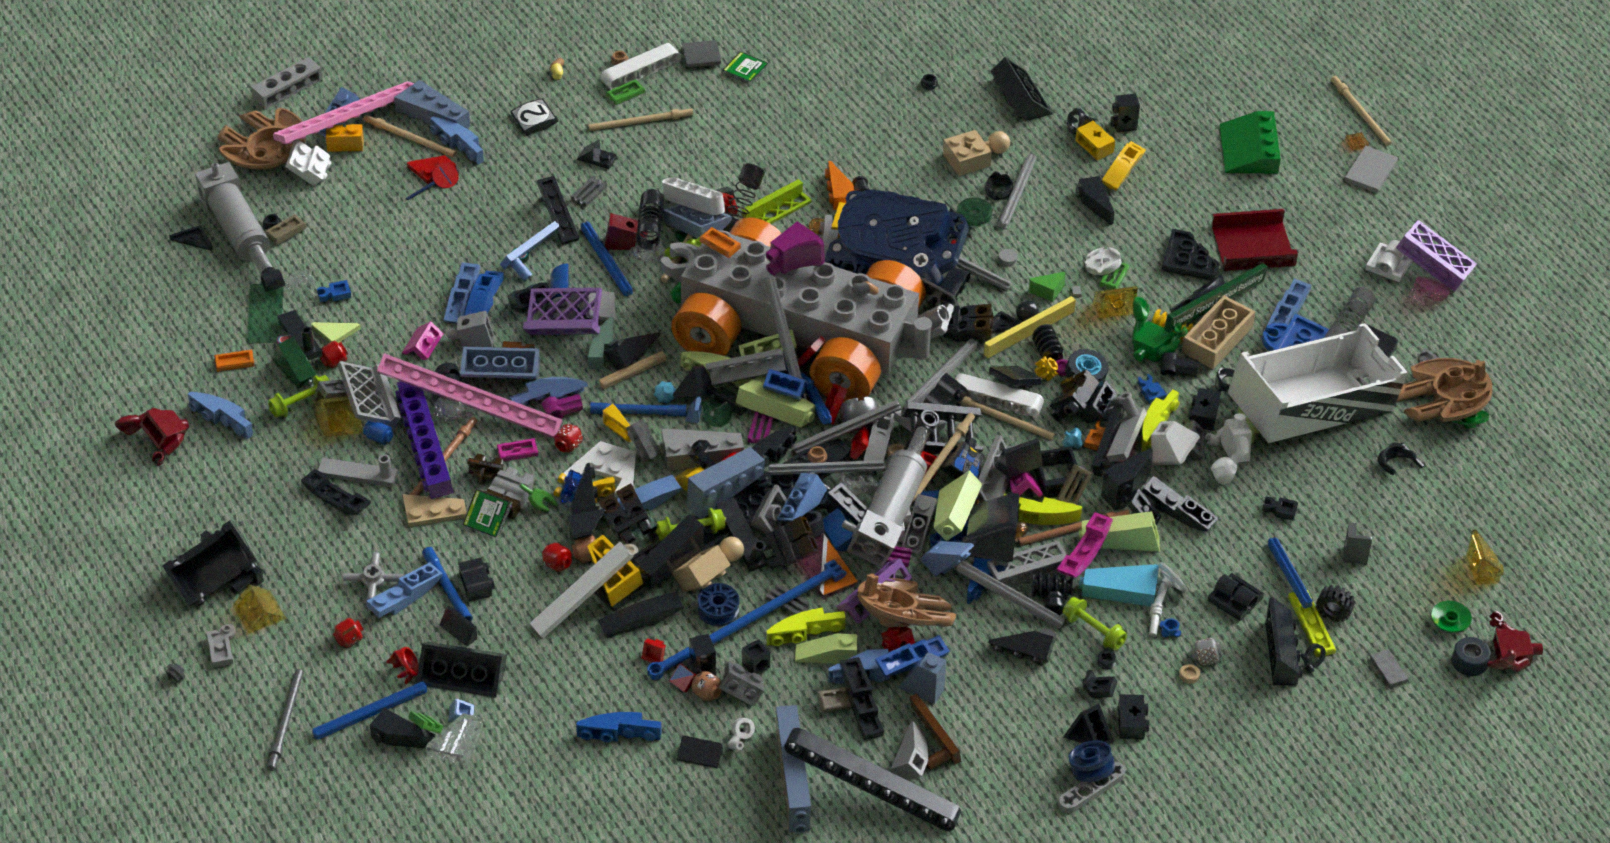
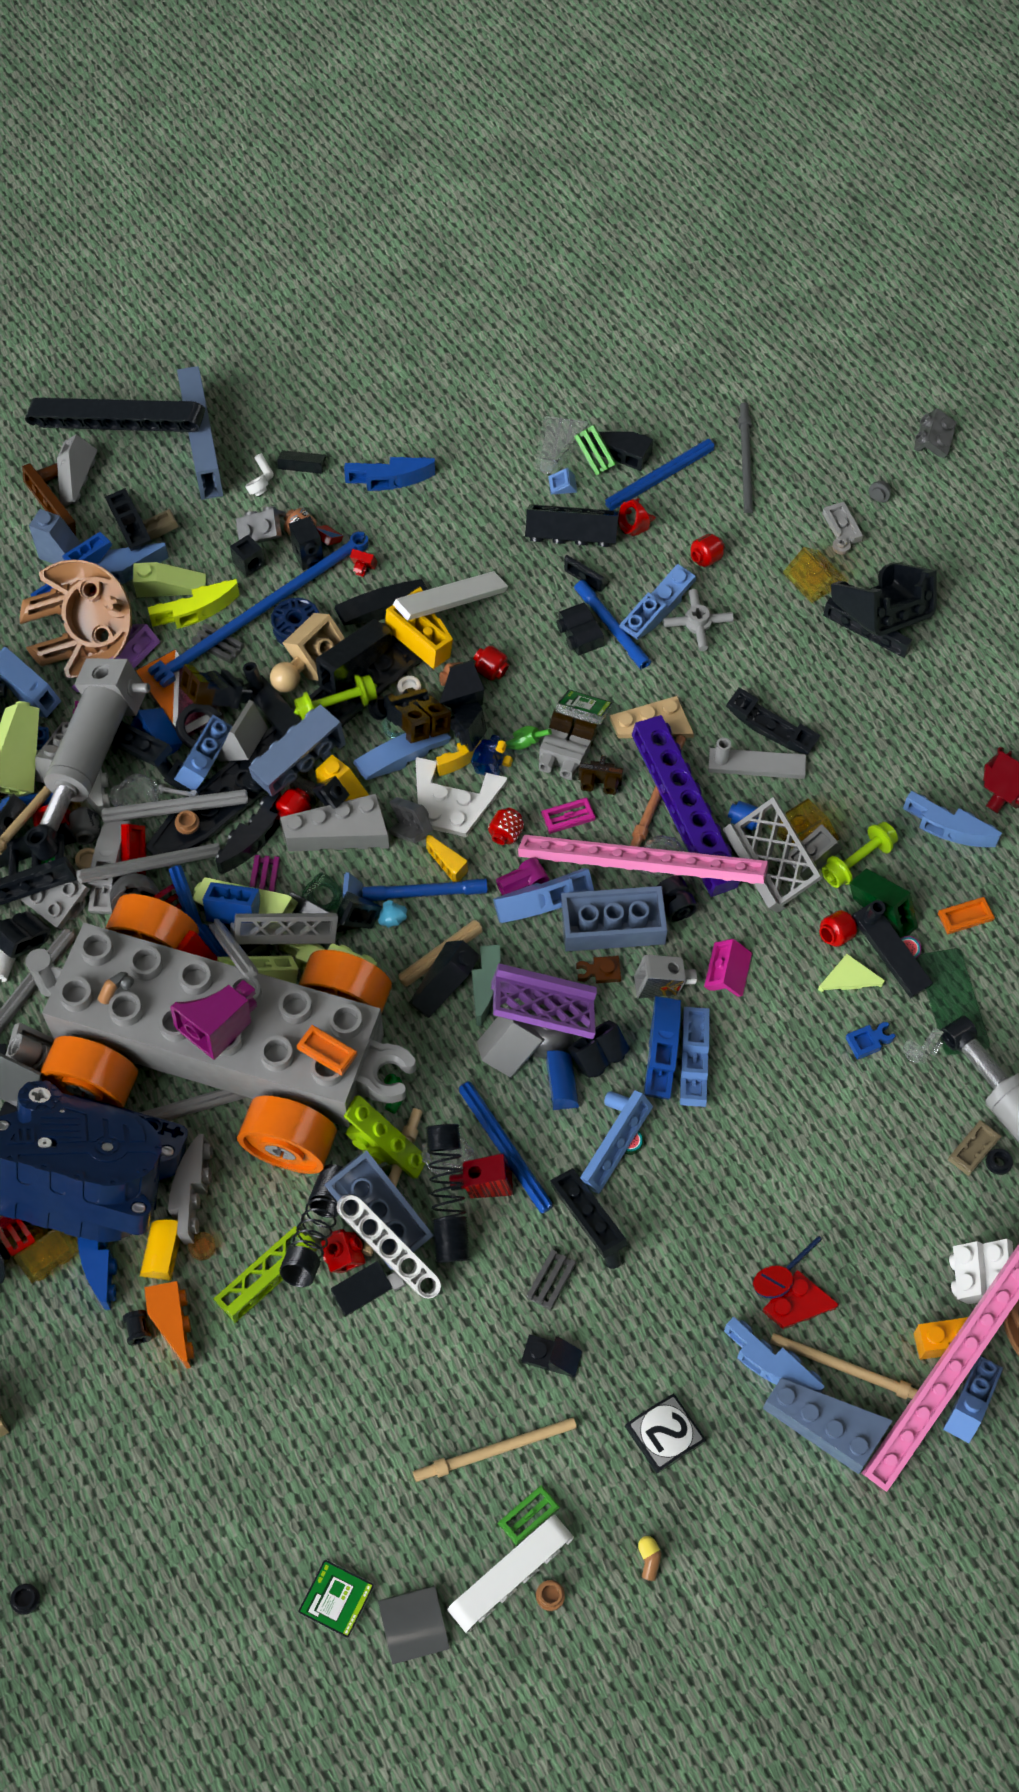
camera: 175 degrees right, 15 degrees up
(103, 722) = (935, 433): none -> flat silver bracket

